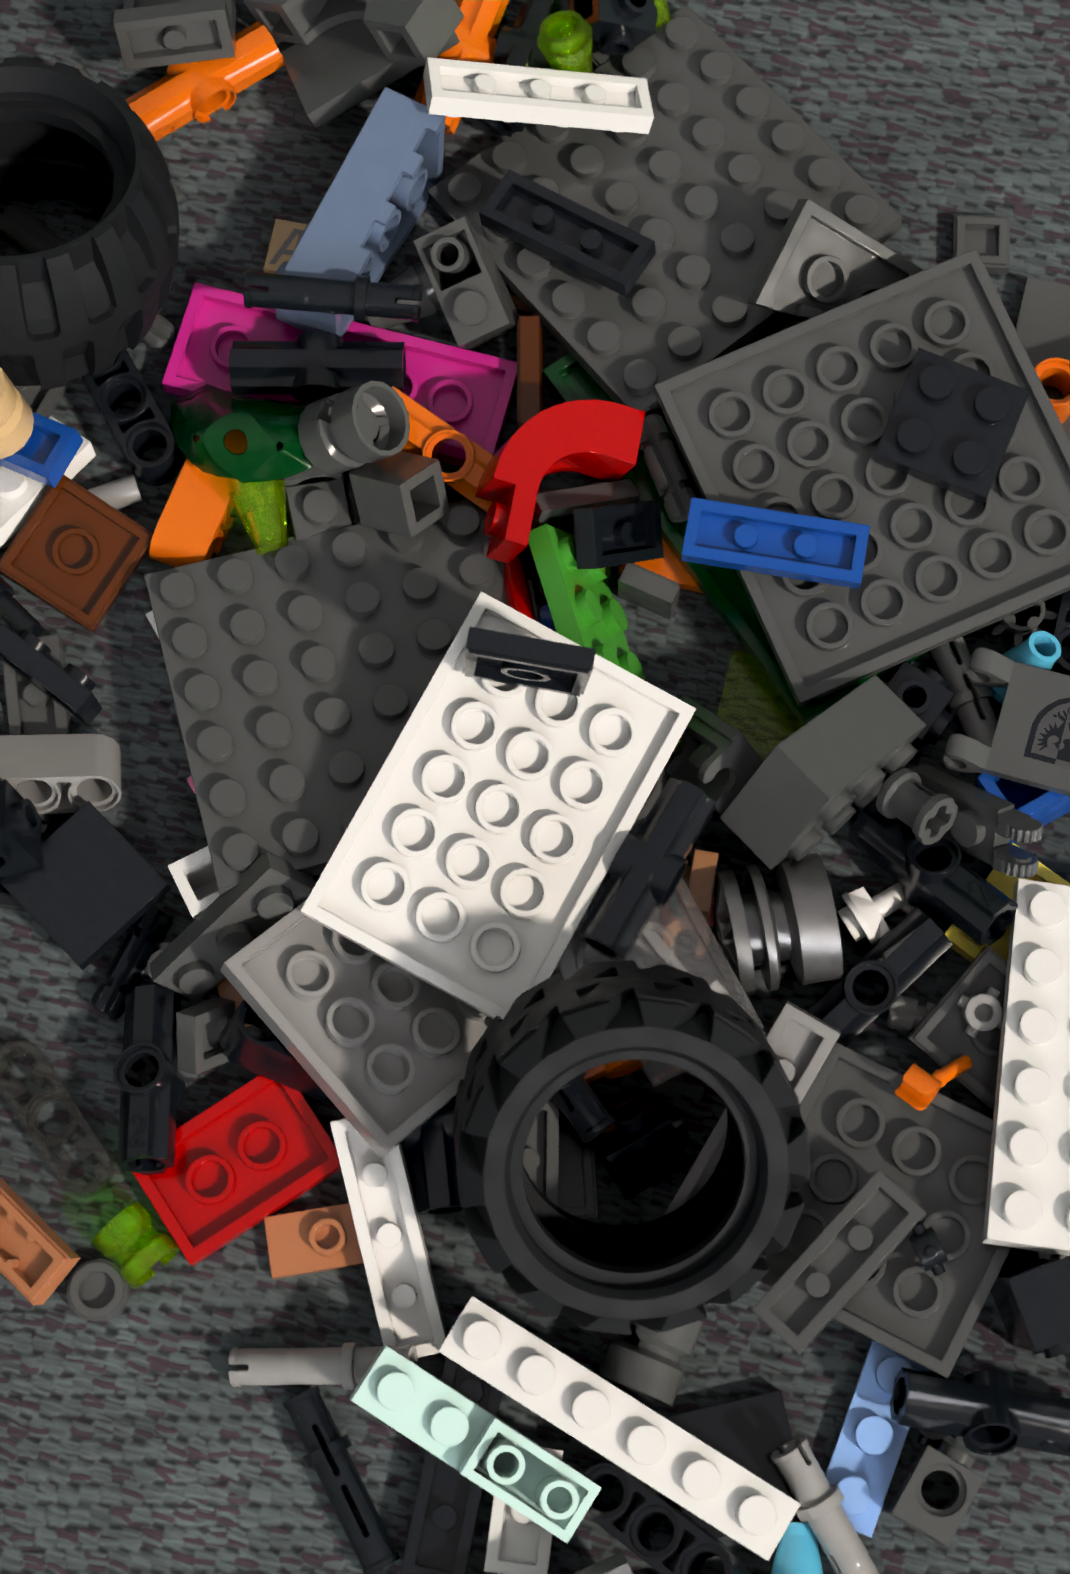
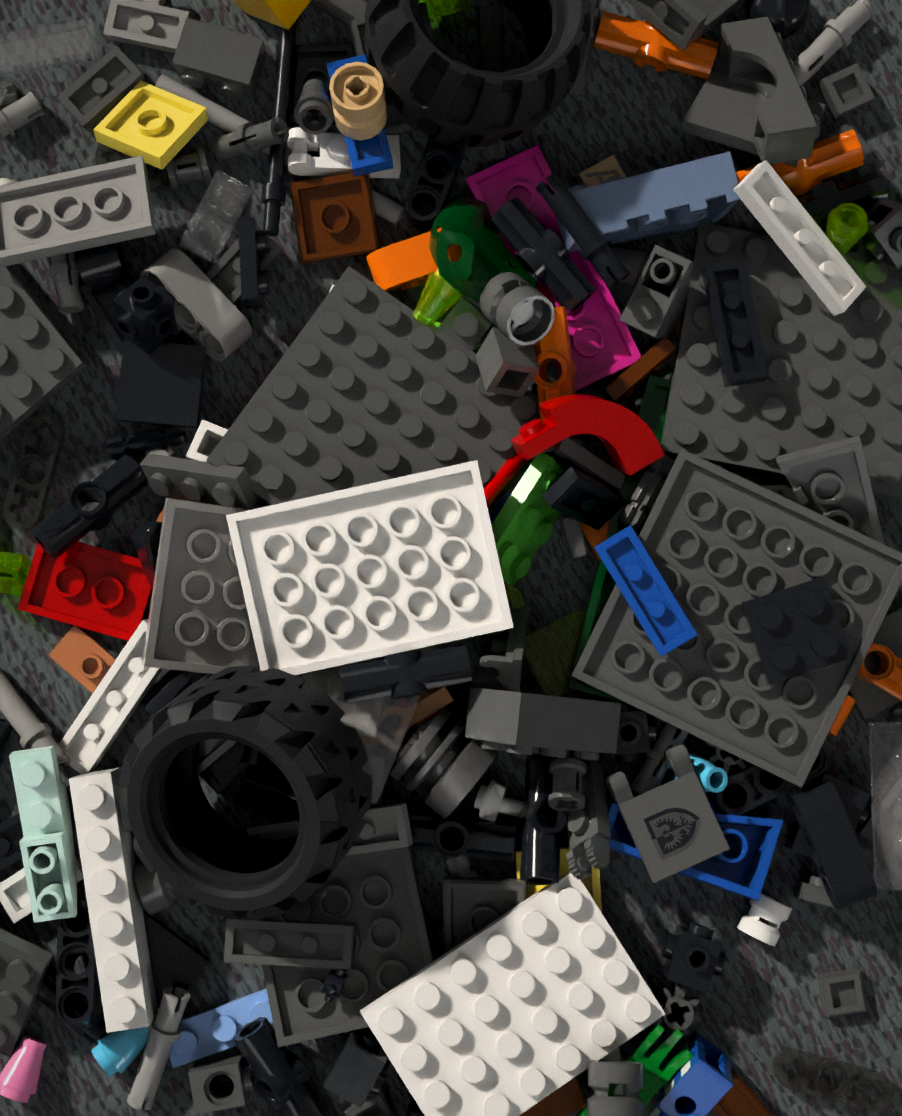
camera: 45 degrees right, 10 degrees up
(200, 1034) = (134, 511): dark grey plate -> none
(528, 661) = (450, 523): black tile -> none
(921, 1087) = (417, 910): orange hand -> none
(981, 1011) = (486, 908): light grey piece -> none

